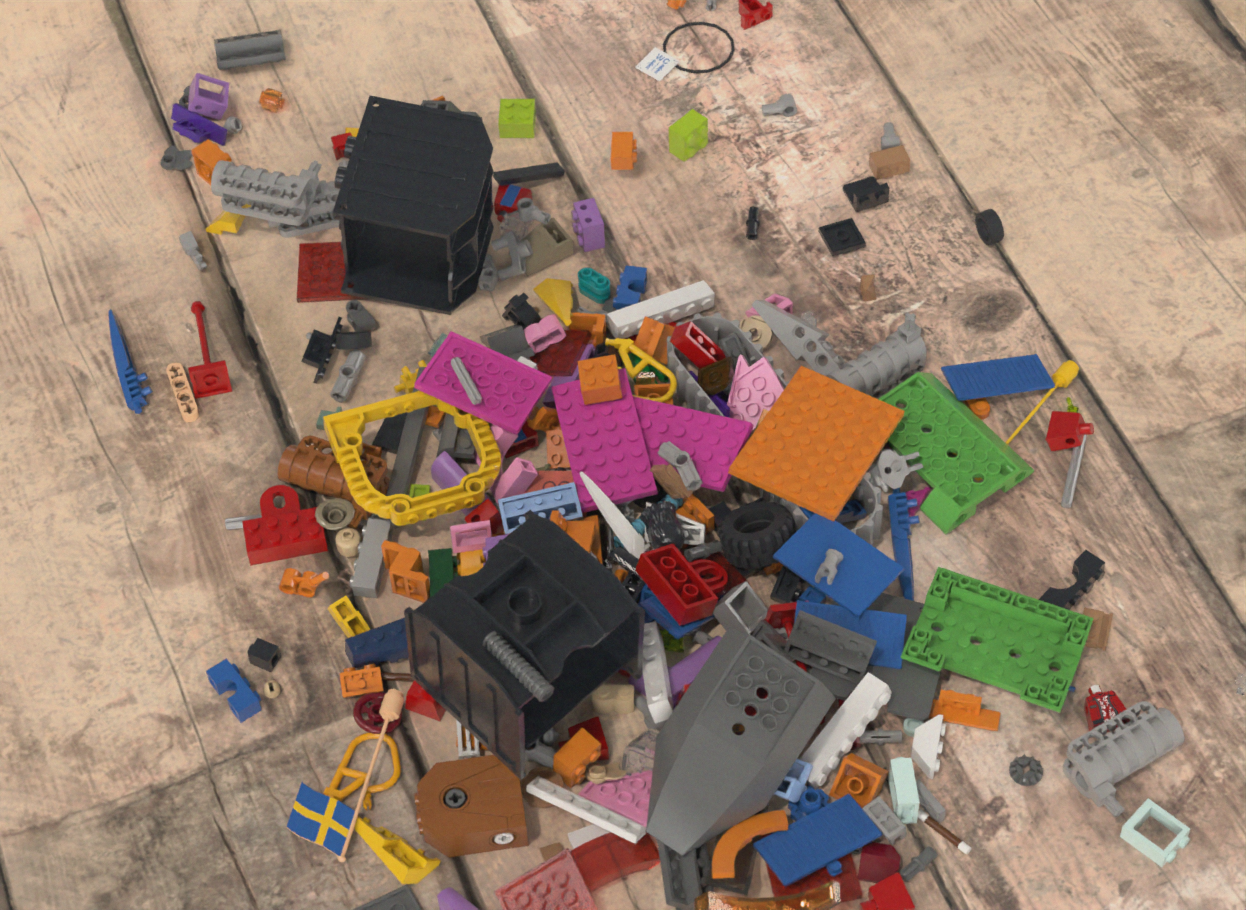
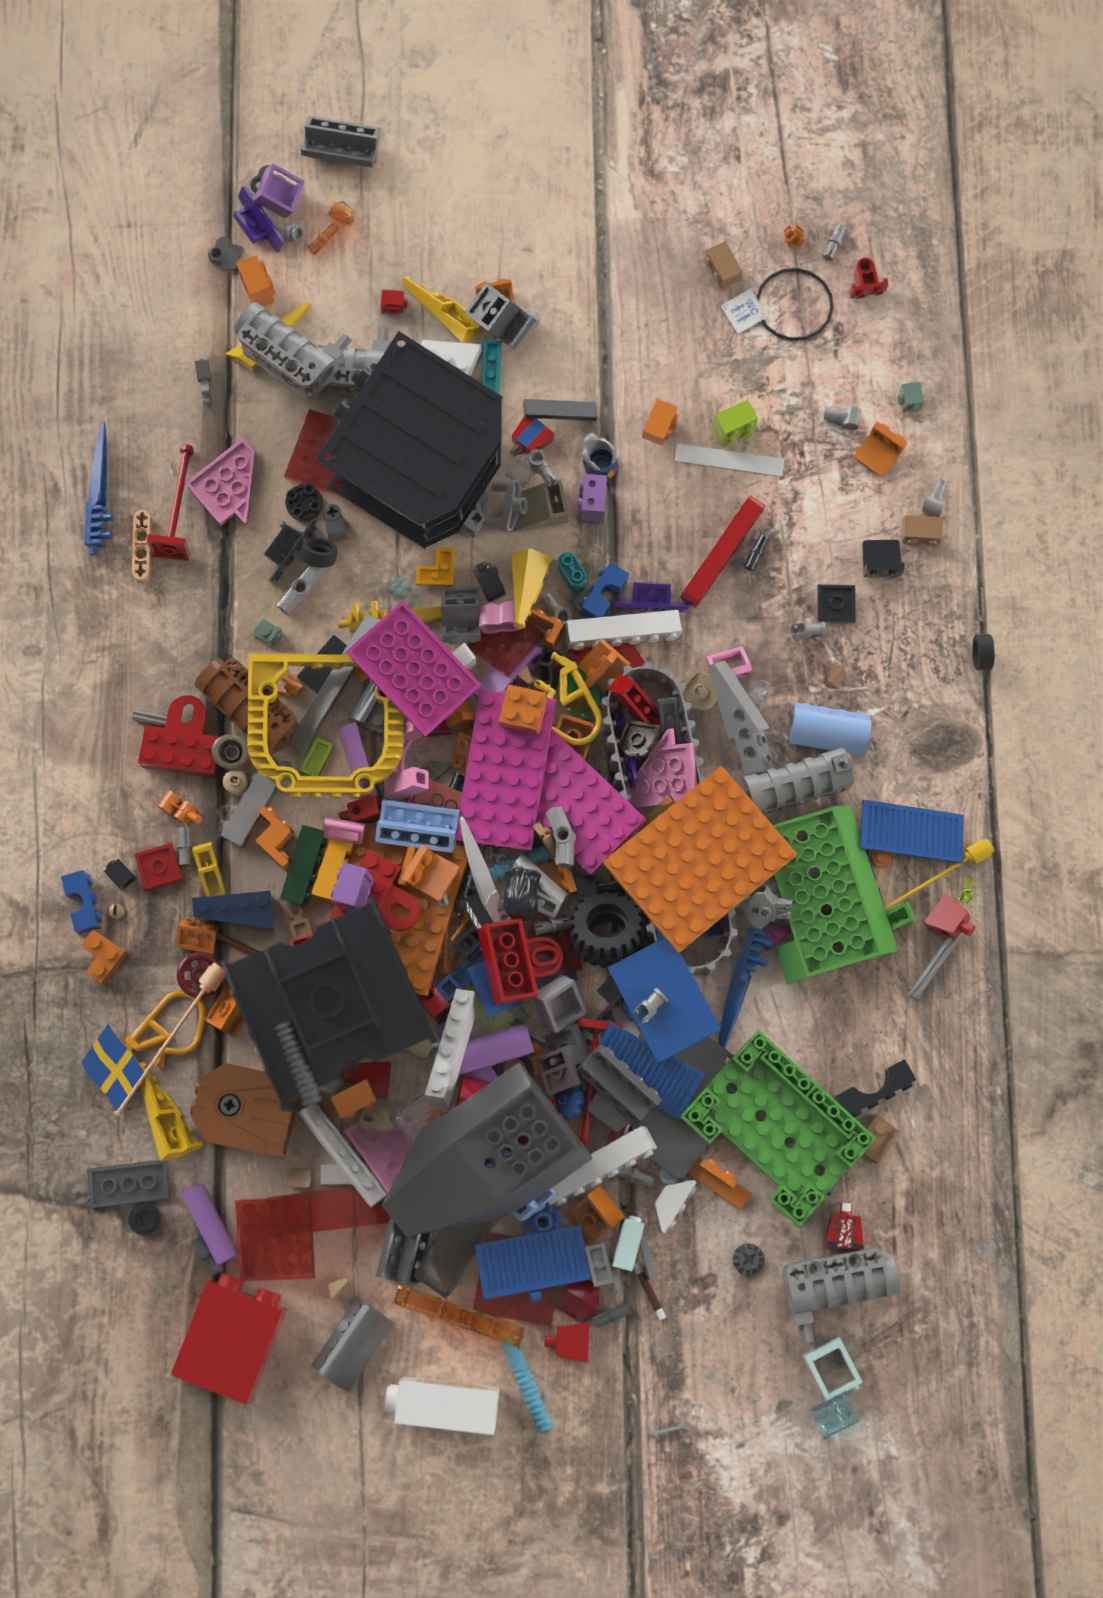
camera: 15 degrees right, 25 degrees up
(244, 320) = (226, 483): none -> bright pink wing
(261, 123) = (323, 238): none -> clear orange axle
(277, 727) = (108, 957): none -> orange brick
(300, 637) = (158, 867): none -> red plate
(318, 613) = (184, 846): none -> light grey axle
(322, 313) = (303, 502): none -> black tile
(420, 731) = (226, 1014): none -> orange bracket
(466, 380) = (395, 666): light grey axle -> none
(474, 322) = (441, 574): none -> light orange plate
(517, 118) = (575, 332): lime brick -> none
(577, 191) = (599, 456): none -> piece
(624, 36) = (723, 264): none -> medium nougat brick
(673, 280) = (651, 596): none -> dark purple bracket
(695, 168) = (729, 459): none -> white sticker
(722, 231) = (722, 551): none -> red beam
(742, 834) = (460, 1240): orange tile -> none
(824, 117) = (880, 449): none -> orange bracket
(827, 263) = (809, 630): none -> light grey piece
(831, 75) = (911, 397): none -> sand green brick
(875, 326) = (830, 729): none -> light blue brick
(1023, 442) = (900, 916): none -> bright green slope
(1178, 868) = (834, 1415): none -> clear light blue plate

